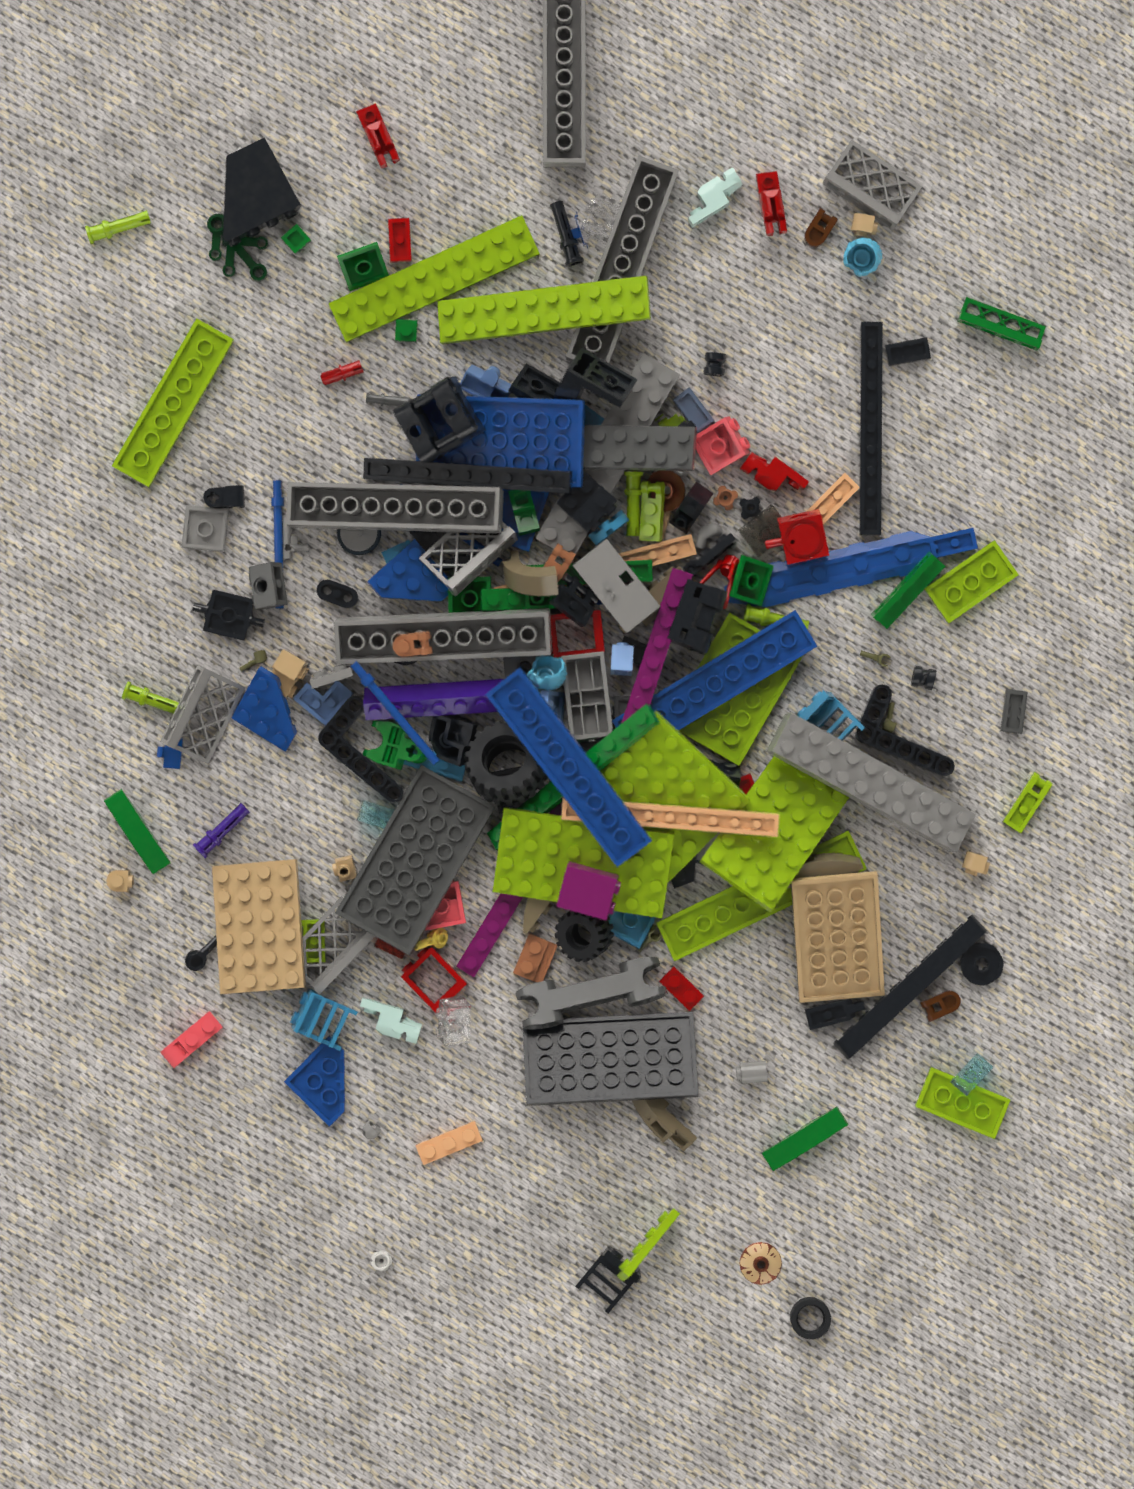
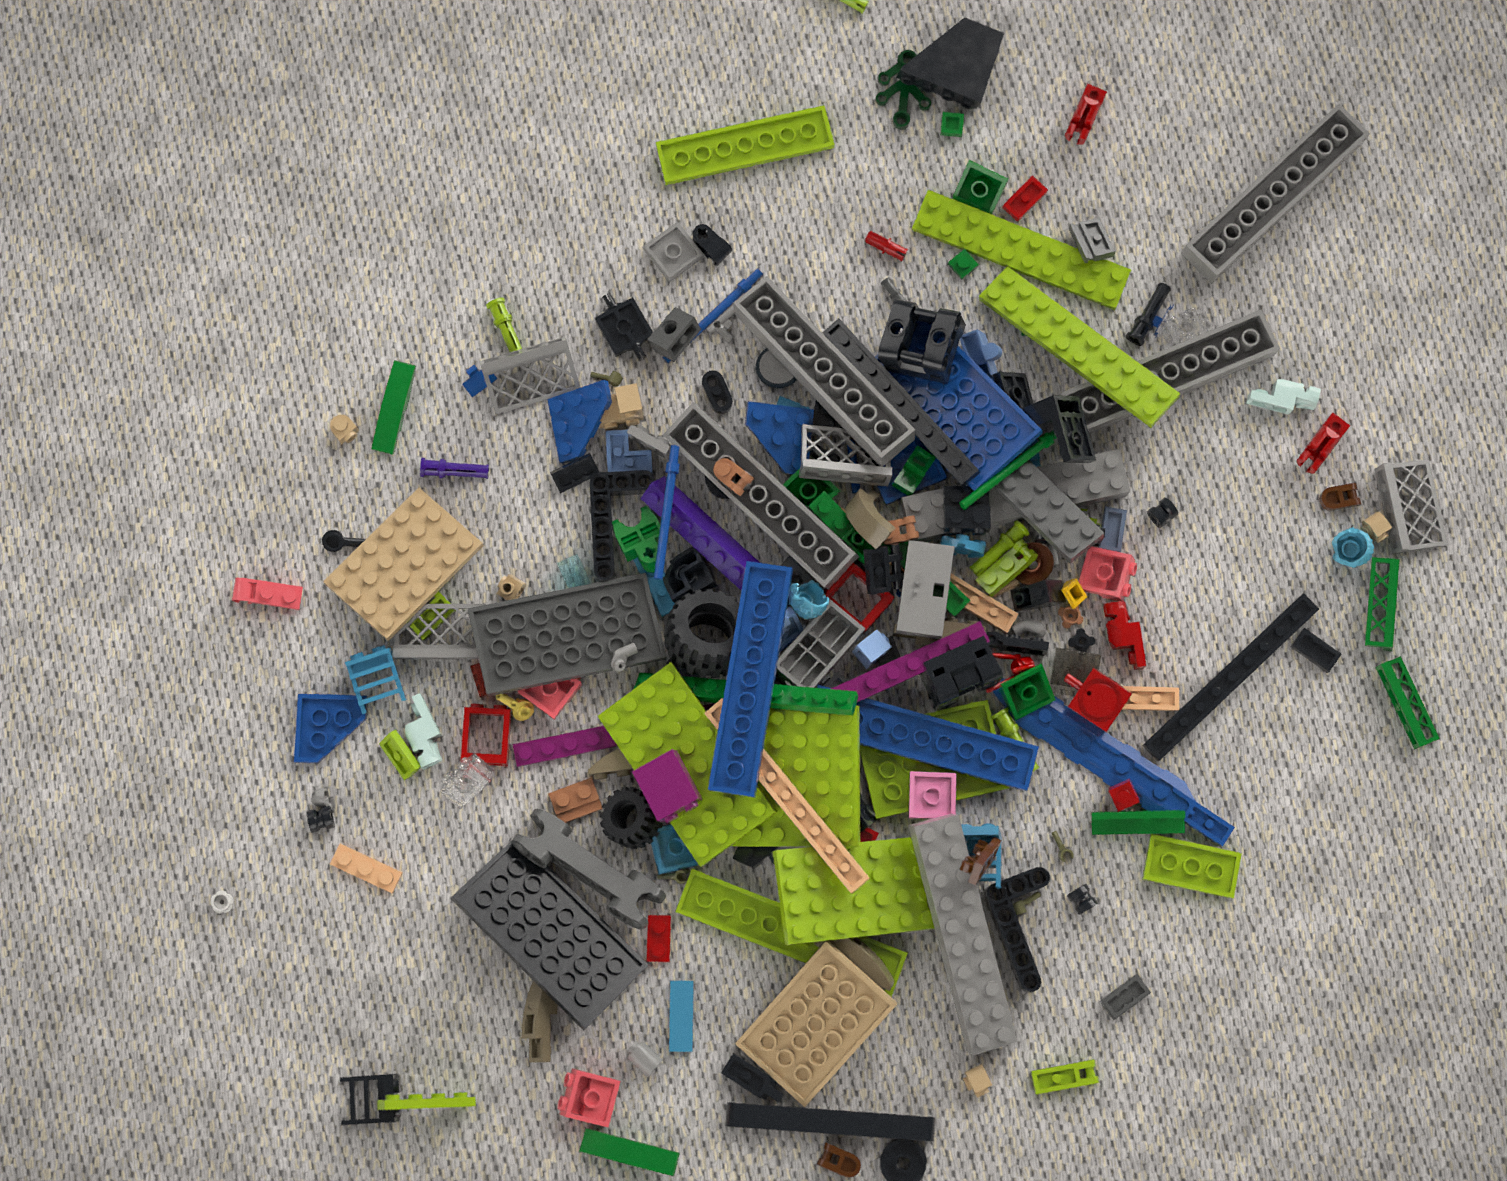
camera: 40 degrees right, 10 degrees down
(303, 748) = (574, 473): none -> black plate
(386, 1143) = (320, 819): none -> black wheel
(392, 1050) = (400, 755): none -> lime plate
(467, 839) = (620, 656): none -> light grey arm
(475, 223) = (1092, 240): none -> plate
(591, 401) = (1045, 441): none -> green bar
(712, 482) = (1073, 592): none -> yellow slope
(743, 1133) = (588, 1097): none -> coral plate
(747, 1021) = (681, 1016): none -> dark azure tile
(759, 713) = (931, 794): none -> bright pink plate
(835, 719) = (984, 857): none -> reddish brown plate
(881, 582) = (1123, 795): none -> red brick
(925, 268) = (1390, 608): none -> green fence

